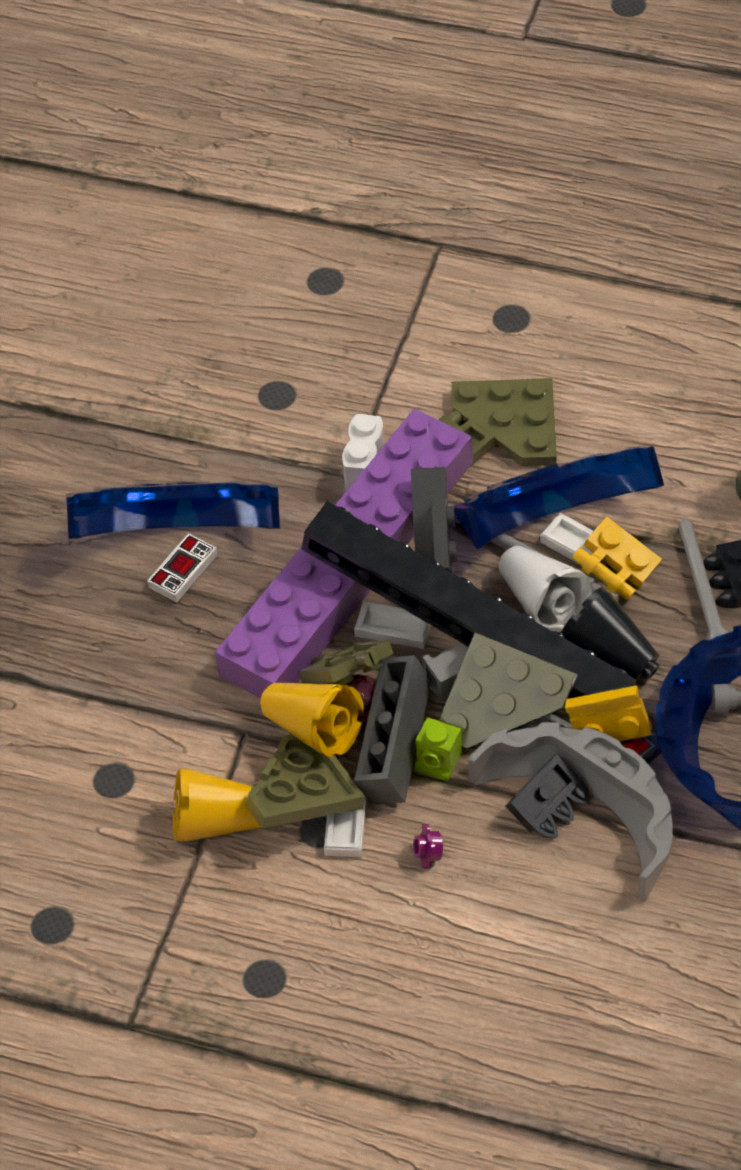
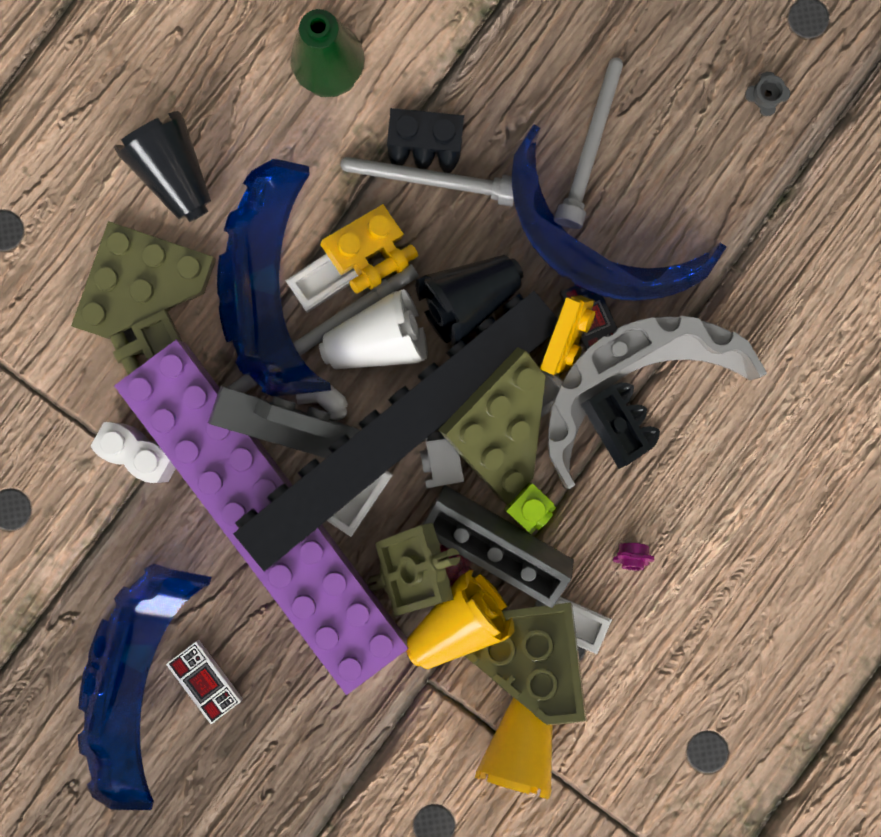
camera: 75 degrees left, 35 degrees up
(470, 566) = (331, 401): none -> white arm
(619, 396) = (167, 165): none -> black cone

